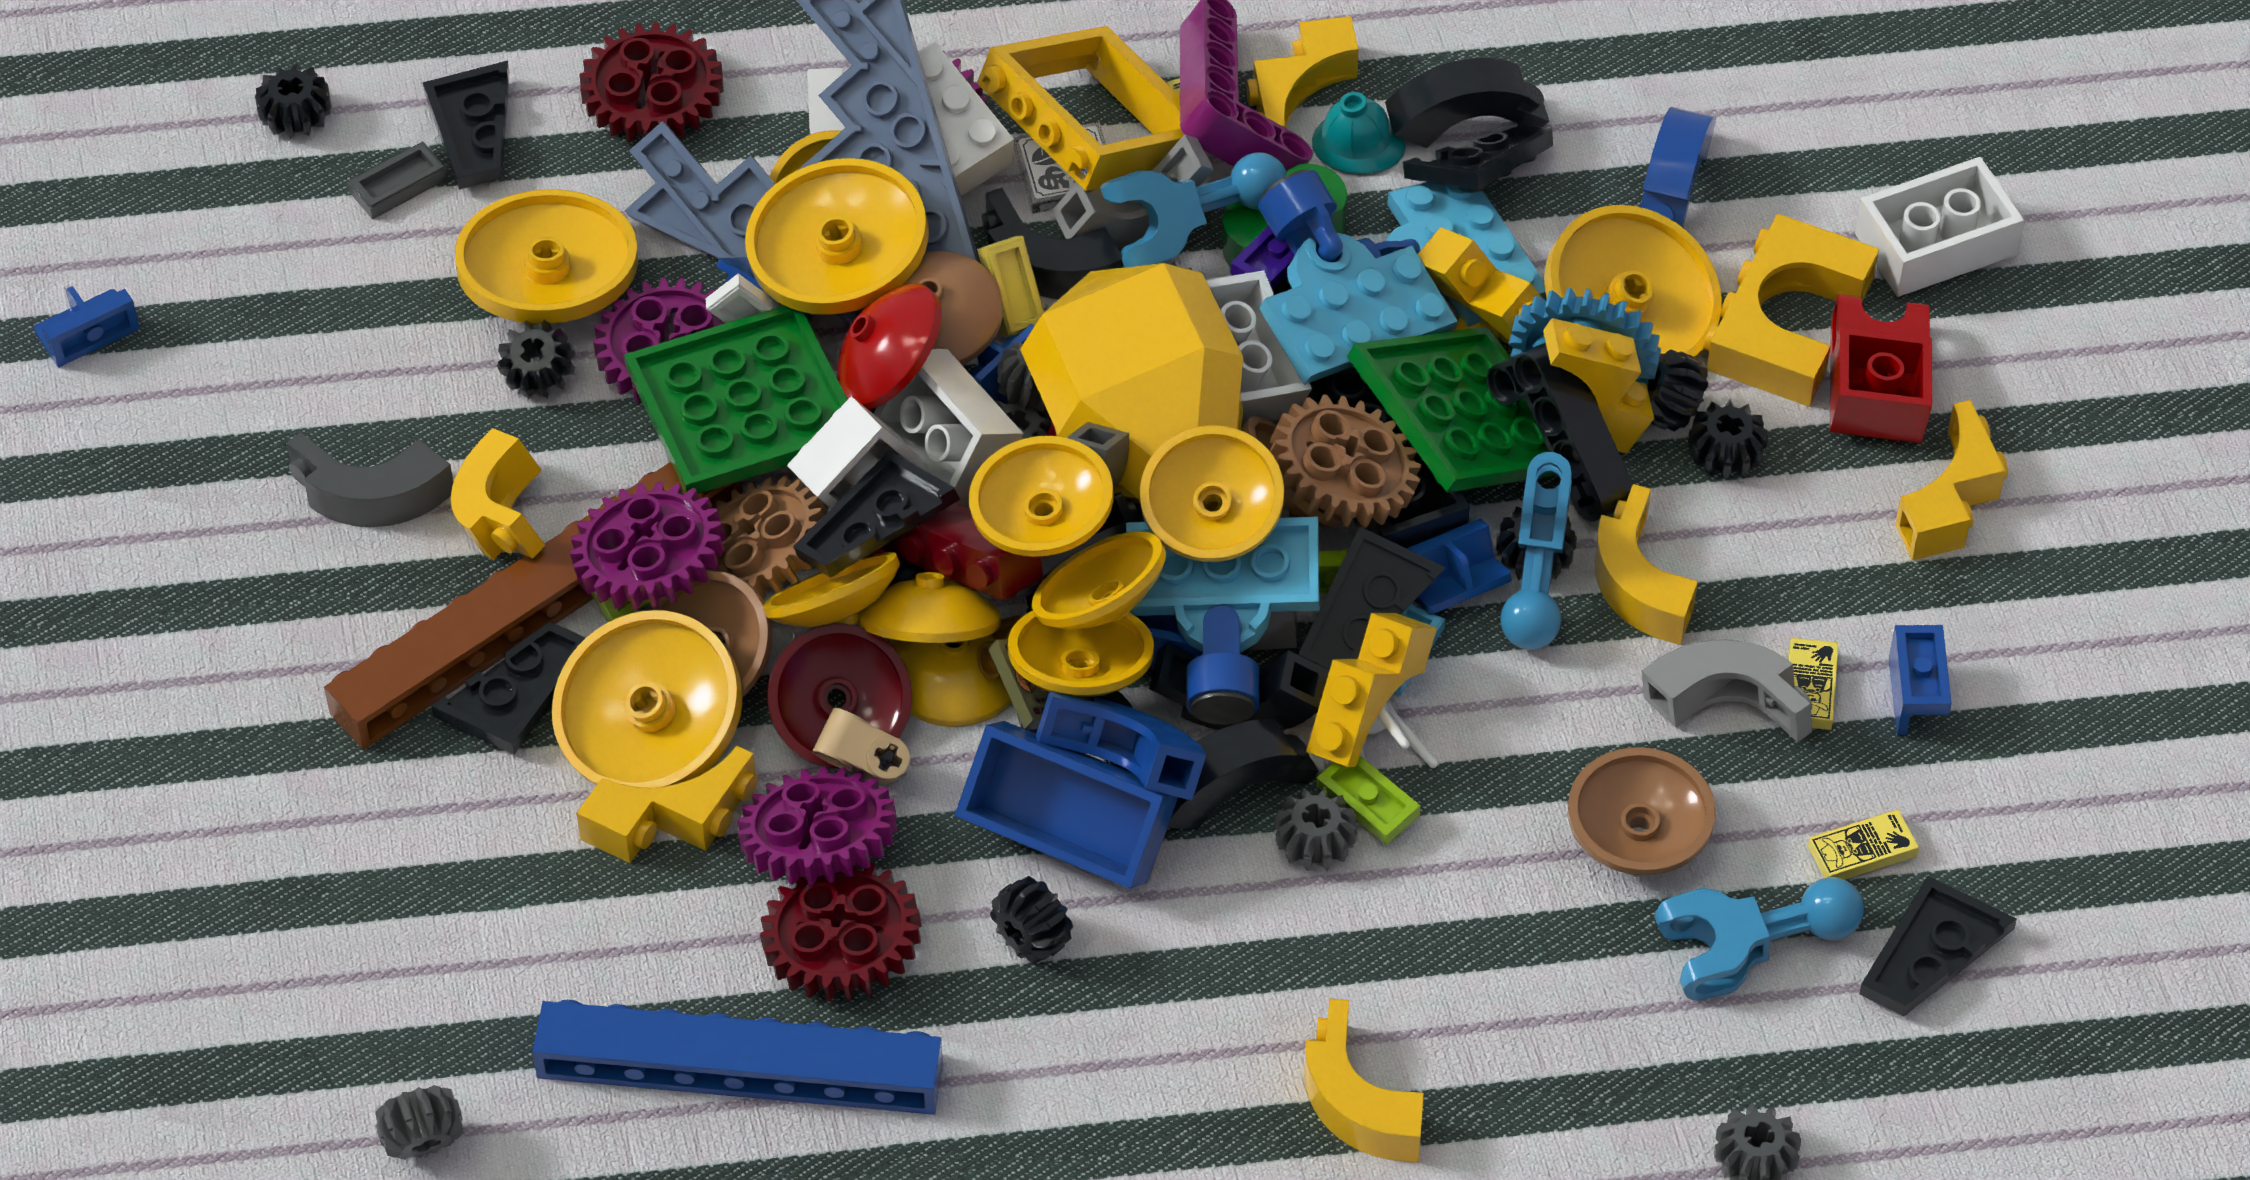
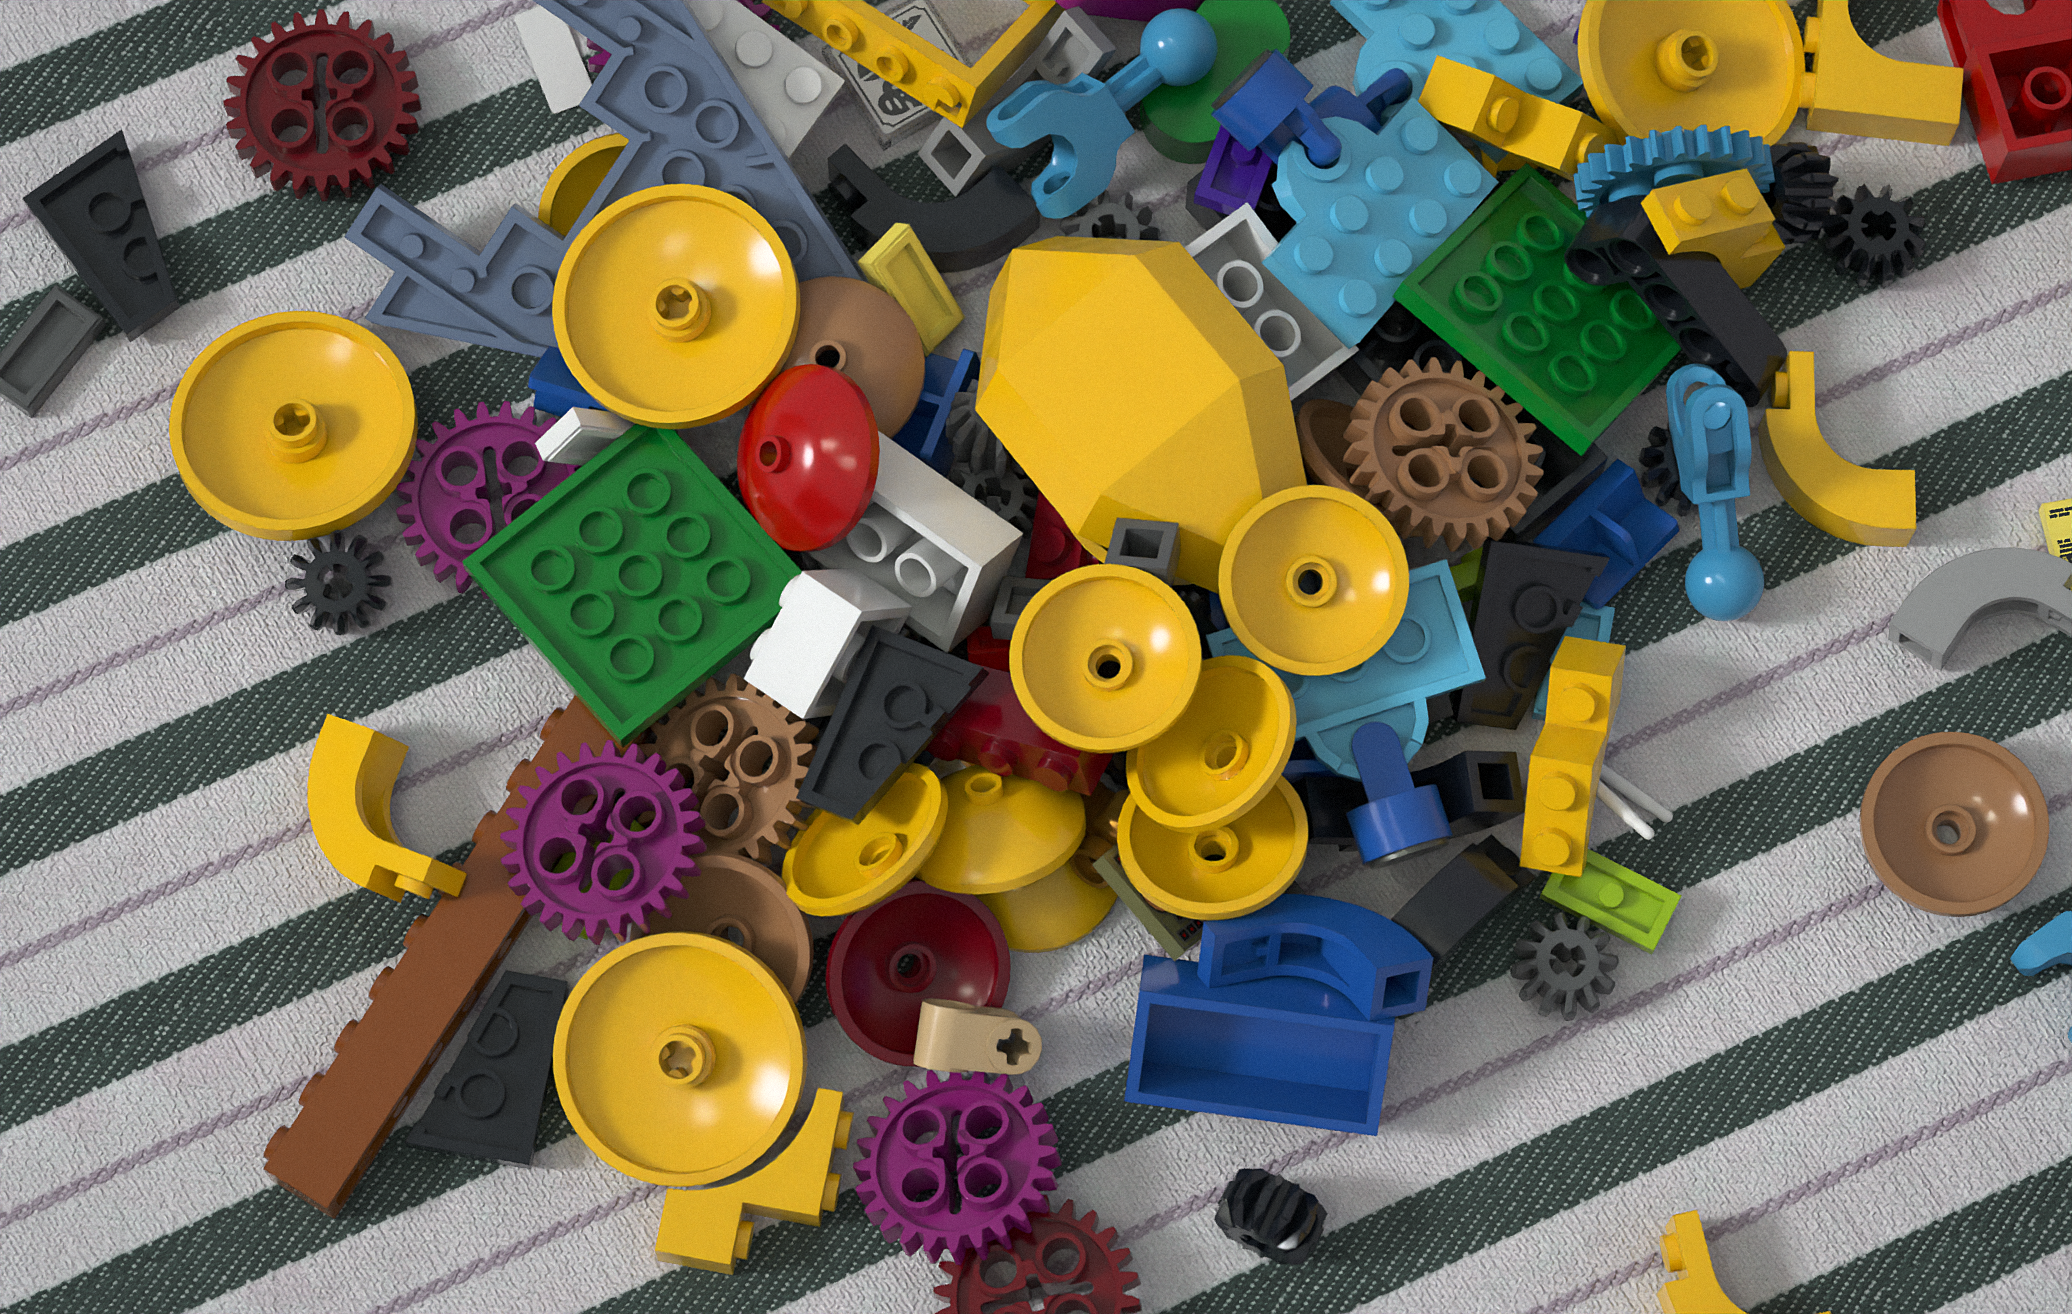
camera: 20 degrees left, 20 degrees up
(375, 494) = (205, 852): dark grey arch -> none

